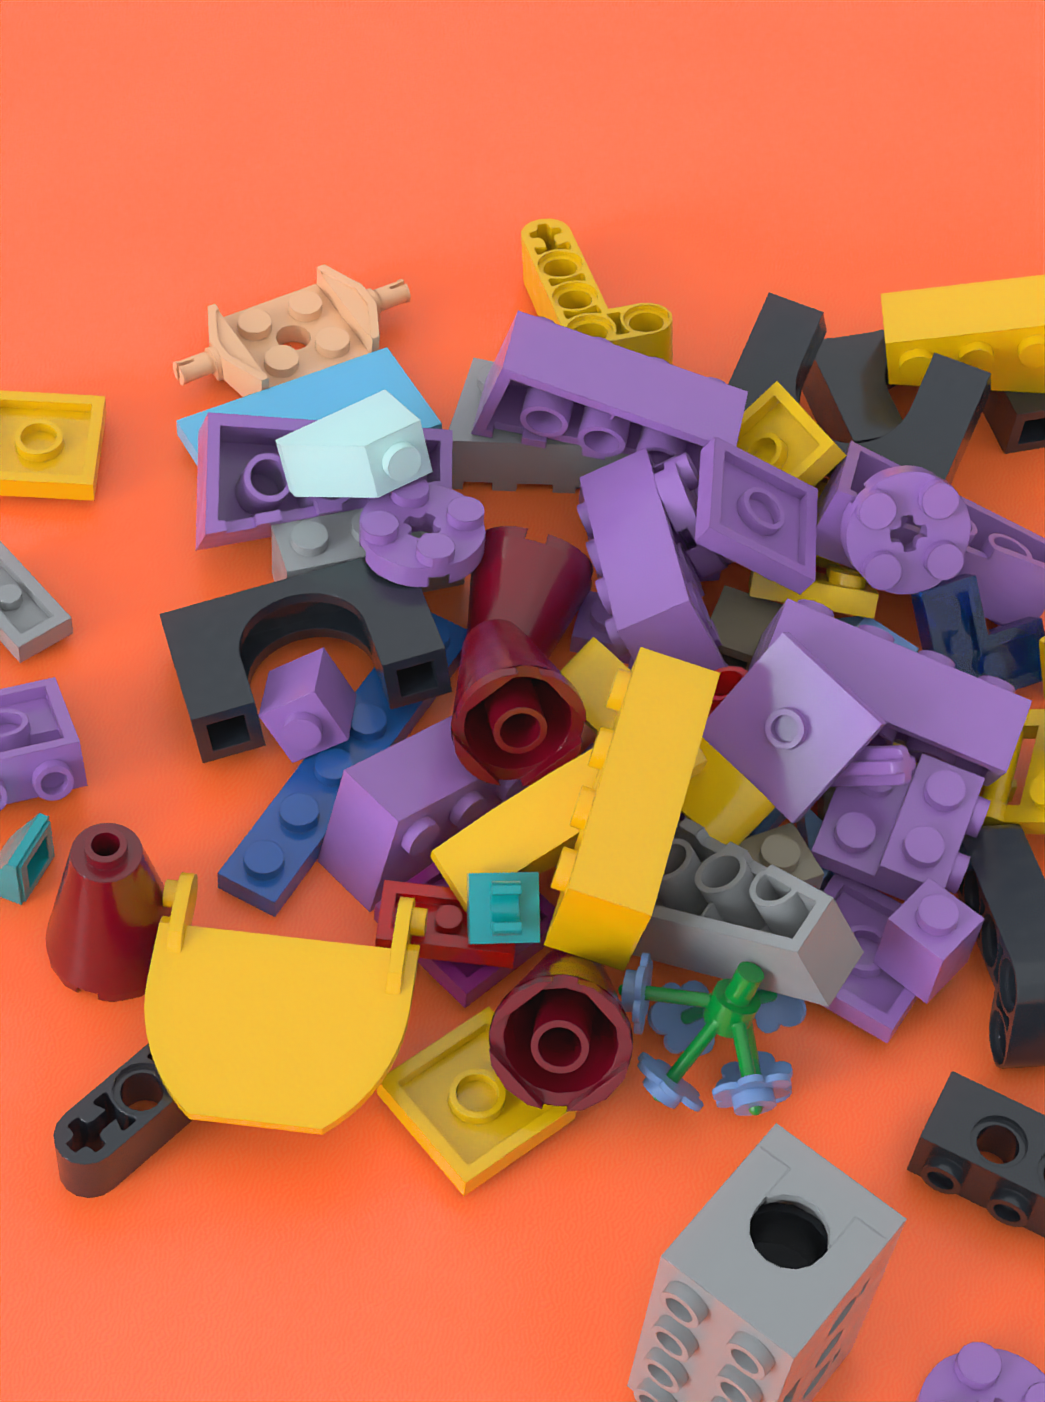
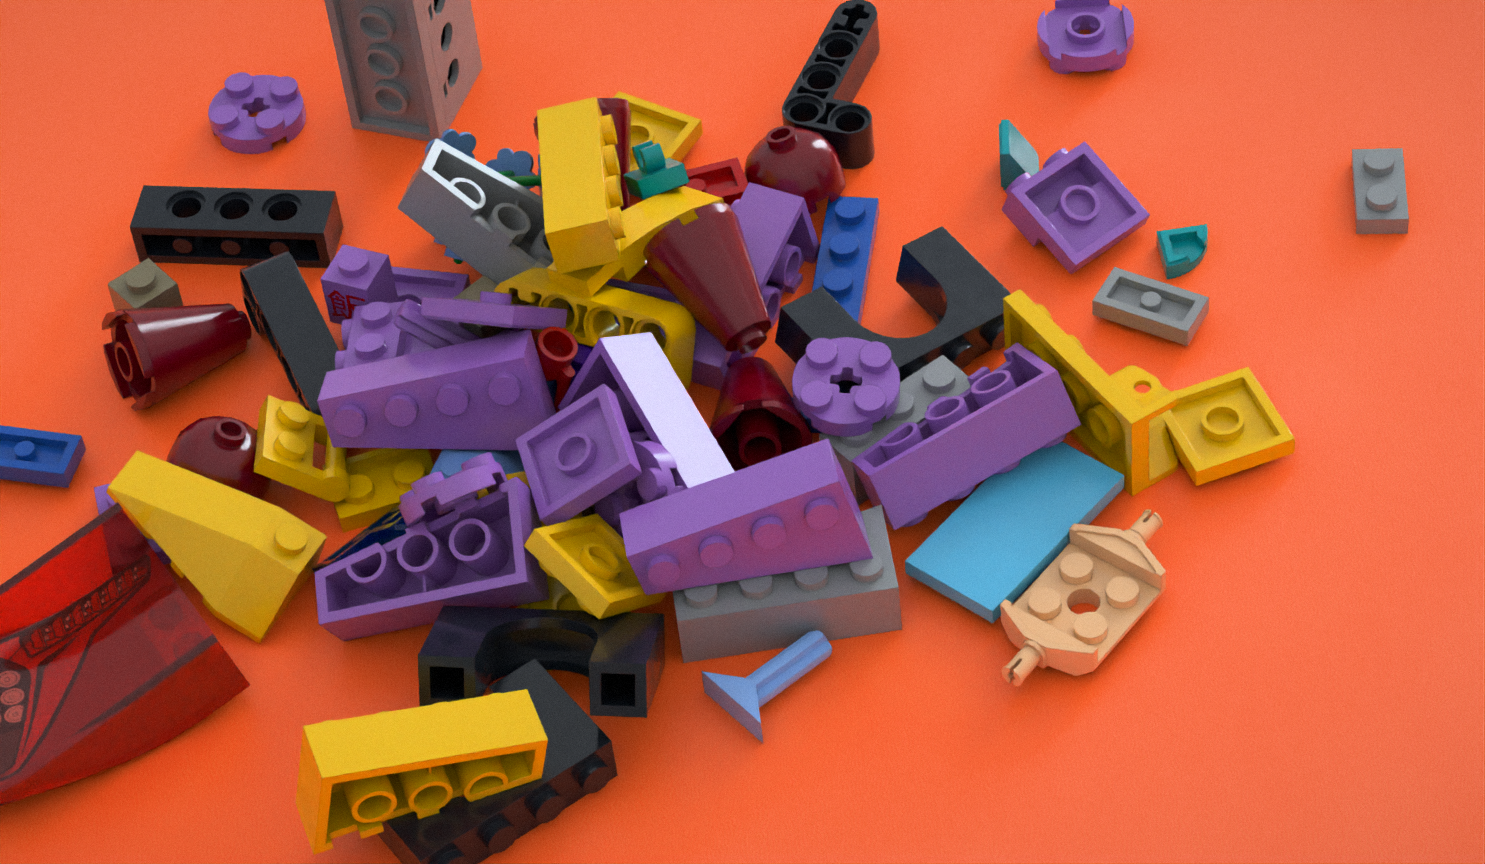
camera: 170 degrees right, 5 degrees down
(106, 914) = (923, 129): dark red cone -> none
(150, 462) = (1110, 411): none -> yellow plate
(275, 1022) = (776, 85): yellow piece -> none
(307, 705) = (875, 291): medium lavender brick -> none
(310, 903) = (797, 164): none -> dark red cylinder
(356, 451) = (917, 387): light aqua slope -> none
(569, 296) = (890, 755): yellow beam -> none

